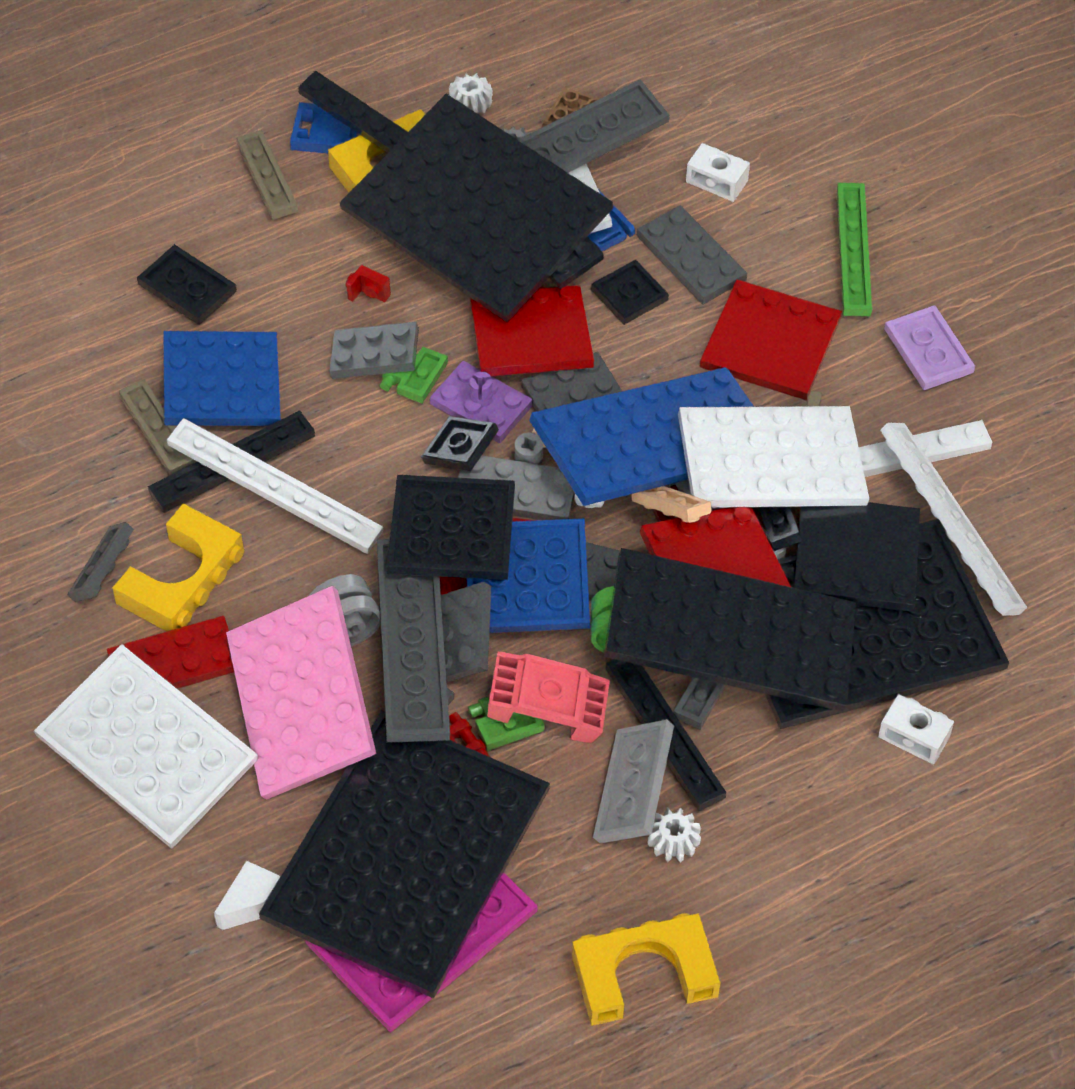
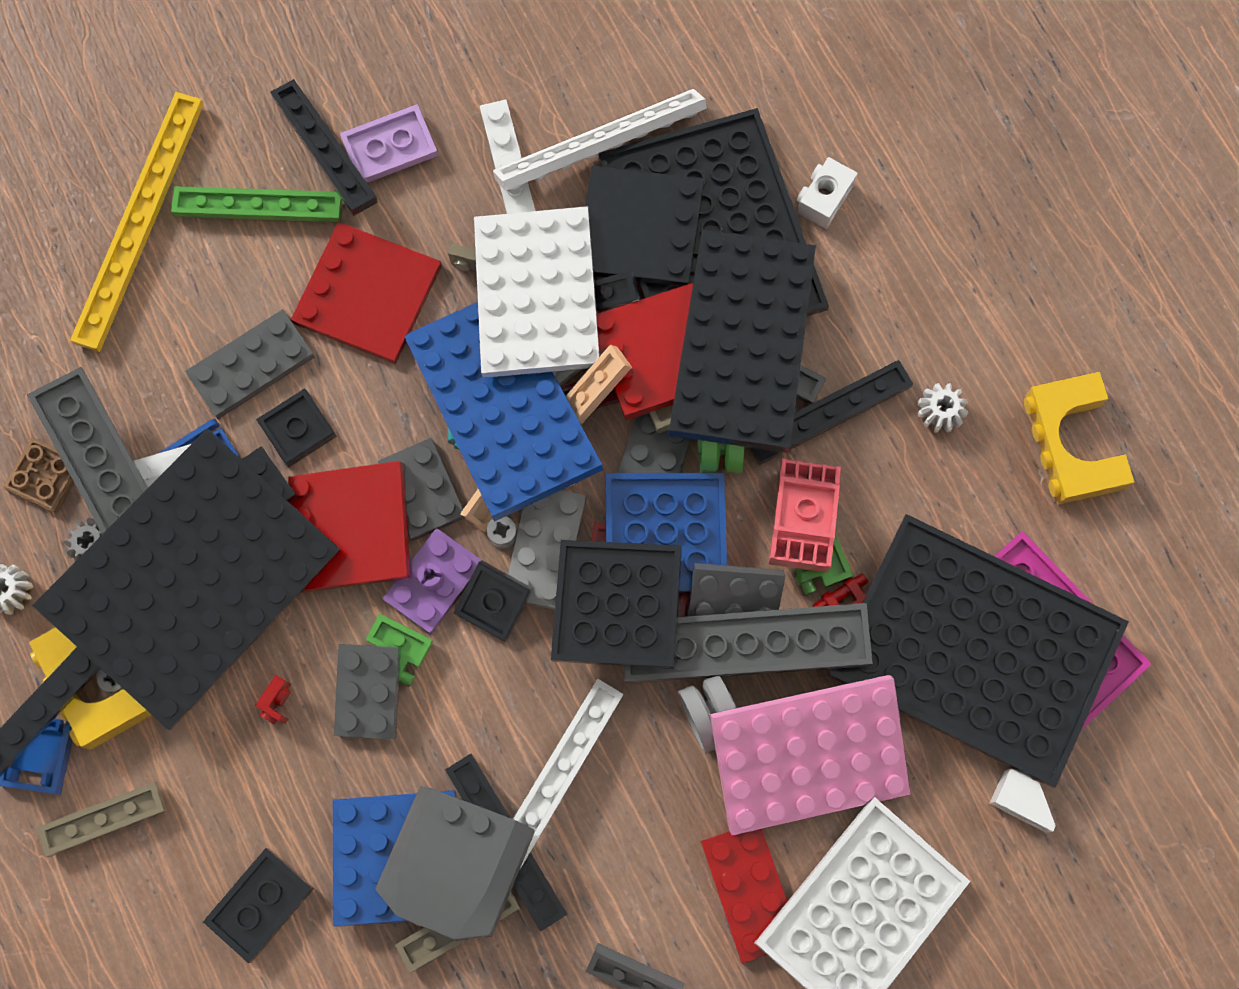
camera: 85 degrees left, 20 degrees up
(173, 604) = (690, 895): yellow arch -> none
(207, 406) = (453, 866): none -> dark grey wedge
(633, 782) = (894, 439): light grey plate -> none
(717, 172) = (144, 345): white brick -> none
(831, 162) = (137, 222): none -> yellow plate
(916, 291) = (324, 147): none -> black plate

